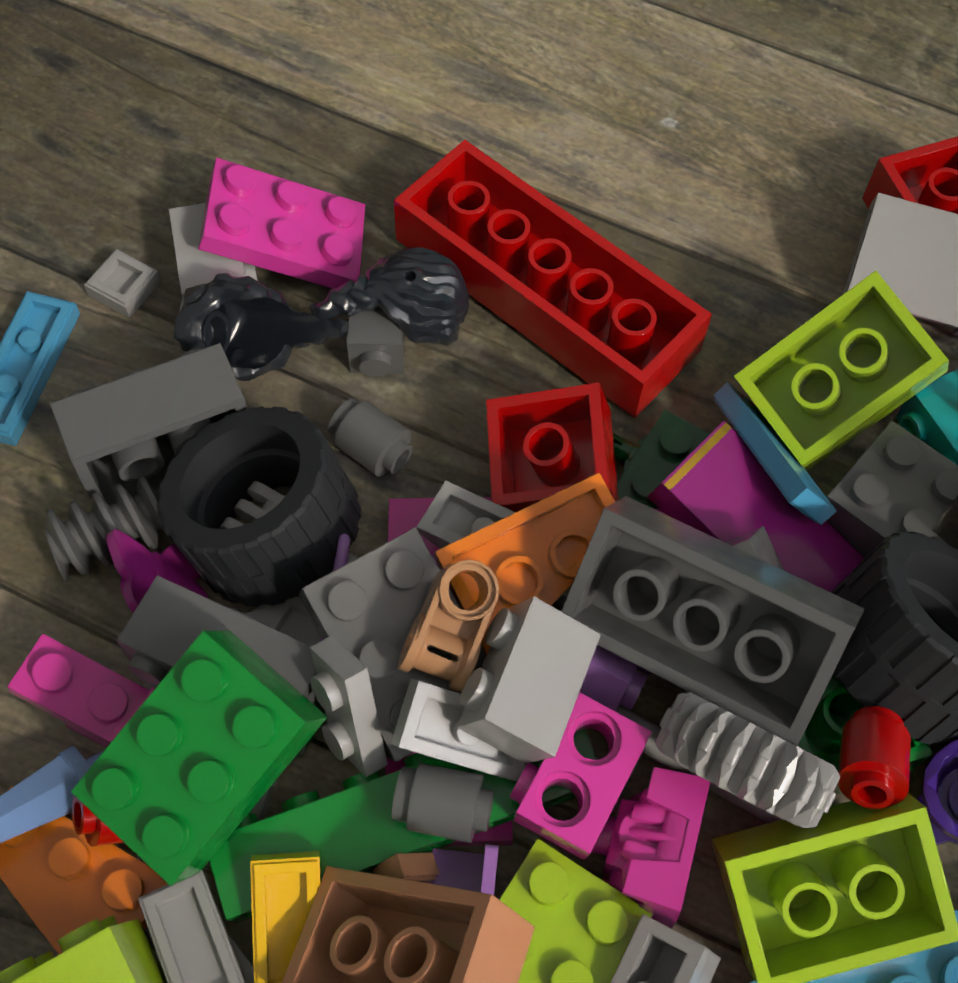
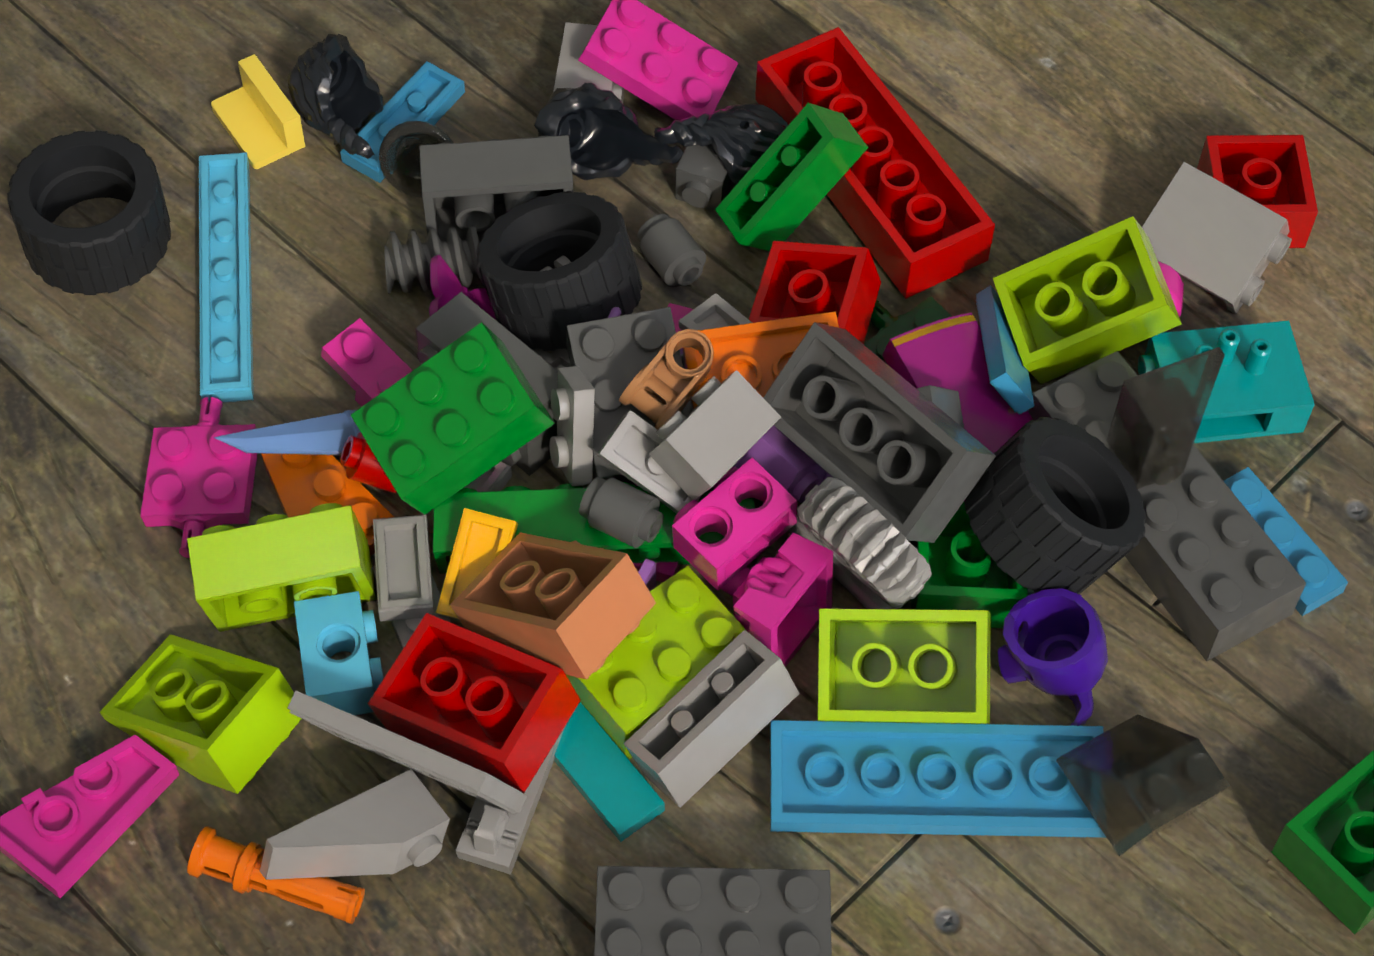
camera: 20 degrees right, 5 degrees down
(29, 408) = (401, 154): none -> clear smoke hat
(122, 283) = (508, 76): light grey tile -> none
(480, 321) = (791, 177): none -> green brick
(875, 758) = (967, 573): red brick -> none

